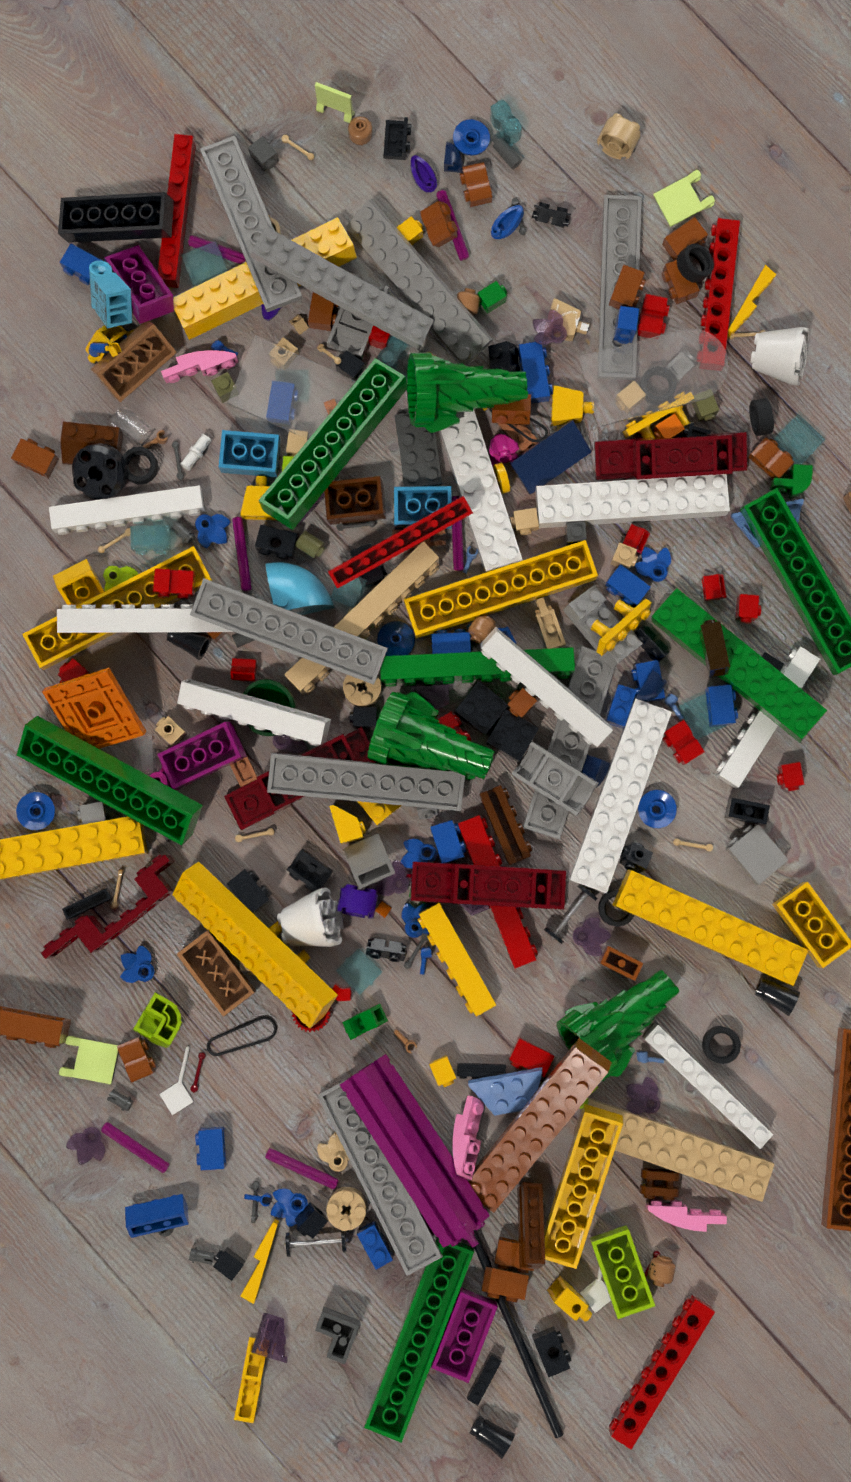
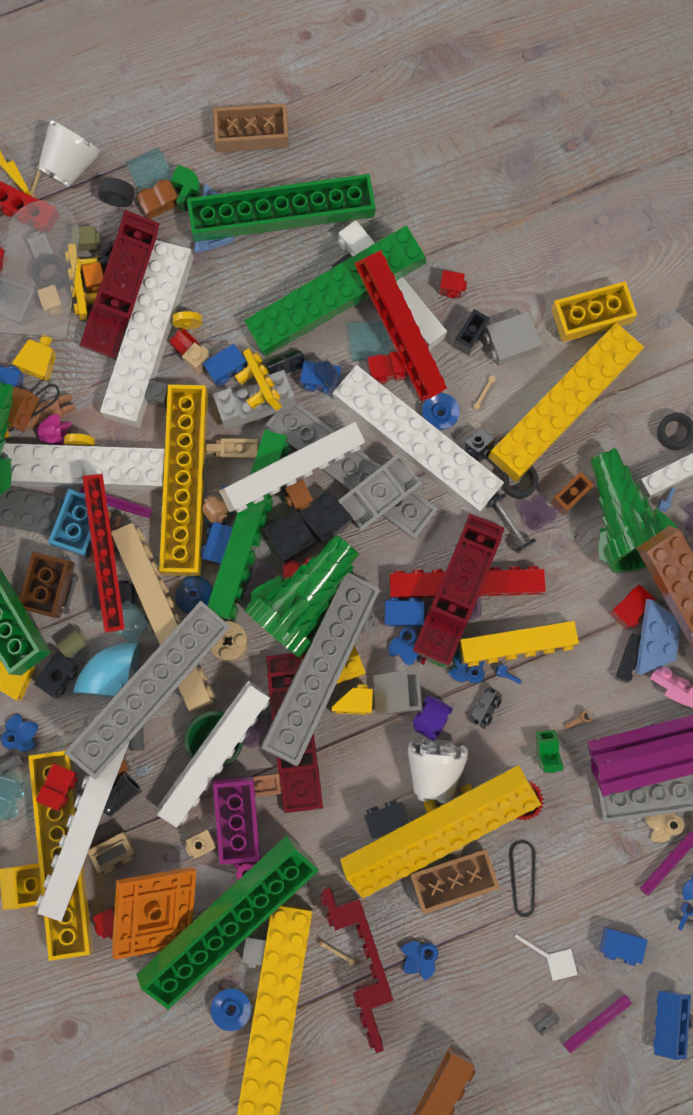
camera: 70 degrees left, 5 degrees down
(85, 1146) = (581, 1074): clear purple plate -> none
(87, 903) = (341, 988): black piece -> none
(93, 1062) = (499, 1036): yellowish green flag -> none
(122, 575) = (28, 838): lime plate -> none
(135, 653) = (112, 852): none -> tan window
(136, 1058) = (512, 991): dark orange brick -> none
(159, 1021) = (482, 955): lime brick -> none
(194, 1088) = (558, 943): dark red hinge -> none
(239, 838) = (330, 813): tan hinge -> none
(241, 551) = (54, 713): magenta axle -> none
(243, 669) = (168, 751): red piece -> none
(309, 870) = (386, 754): black bracket -> none
(344, 994) = (514, 760): red piece -> none
(359, 971) = (497, 741): clear light blue piece -> none
(364, 717) = (257, 650): black brick -> none
(383, 909) = (447, 697): orange piece -> none
(388, 885) = (427, 684): clear purple plate -> none
(407, 965) = (486, 667): dark grey hinge -> none
(443, 1071) = (619, 693): yellow brick -> none
(470, 557) = (142, 498): medium blue hand -> none
(504, 824) = (407, 554): reddish brown brick -> none
(525, 521) = (128, 434): tan brick -> none
(550, 457) = (77, 391): dark blue tile -> none
(595, 768) = (382, 453): dark blue brick -> none
(620, 706) = (334, 409): blue brick -> none
(652, 561) = (211, 335): blue plate -> none
(658, 533) = (187, 320): none -> yellow piece
(670, 701) = (346, 365): medium blue hand -> none
(713, 587) = (255, 290): red piece -> none
(714, 648) = (314, 301): dark brown brick -> none
(721, 705) = (364, 321): blue brick -> none
(724, 740) = (401, 325): none -> red brick
(747, 608) = (285, 267): red brick -> none
(777, 995) = (648, 365): black plant -> none

